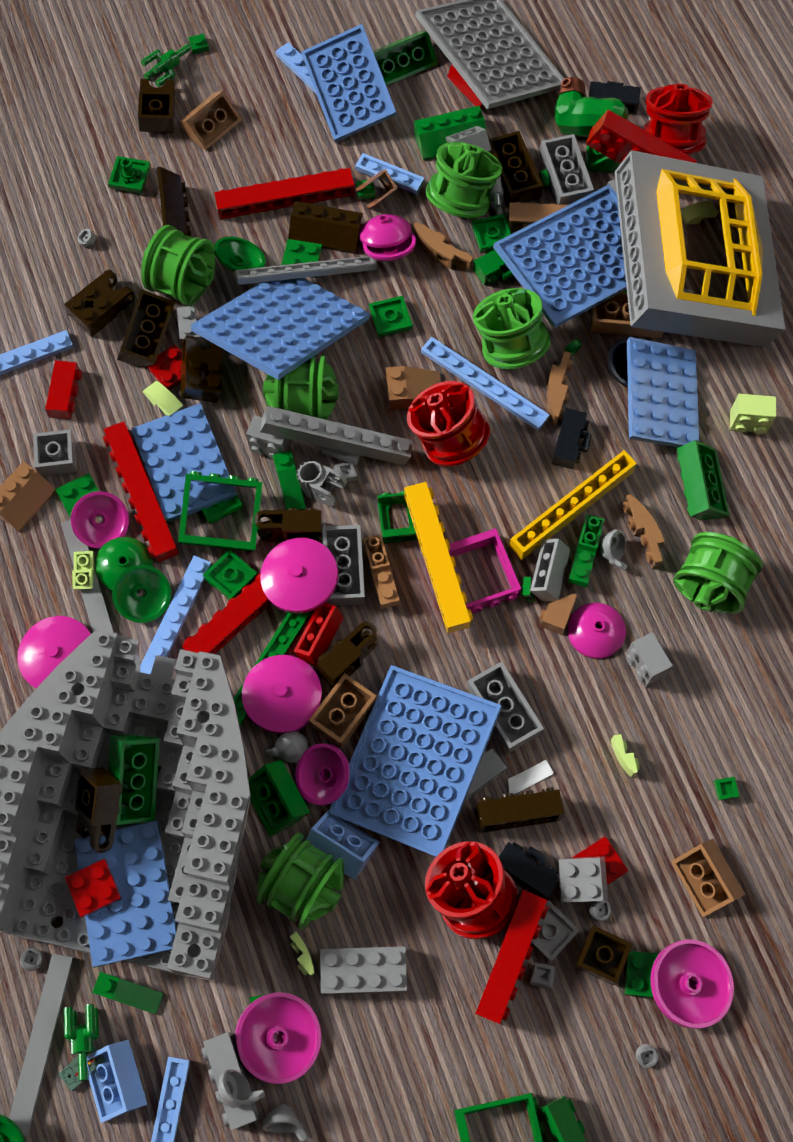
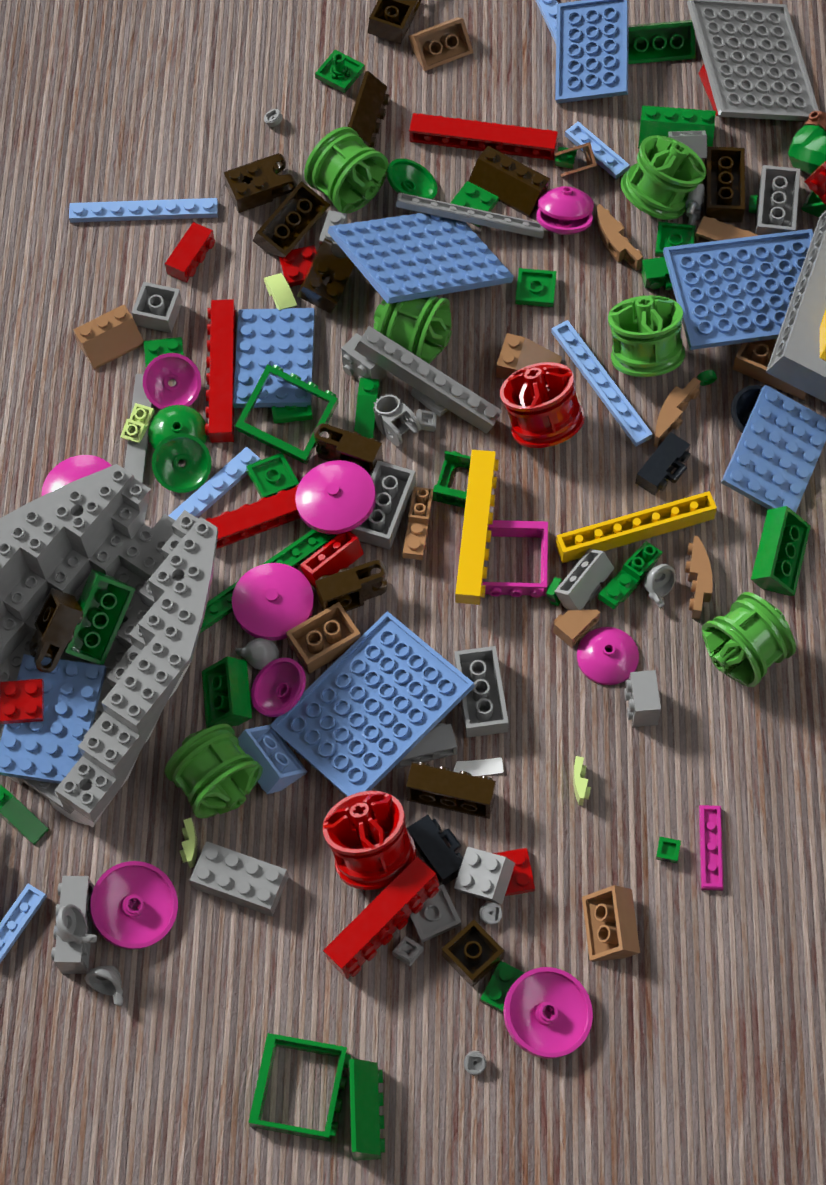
camera: 25 degrees right, 5 degrees down
(759, 771) = (711, 847): none -> dark pink tile

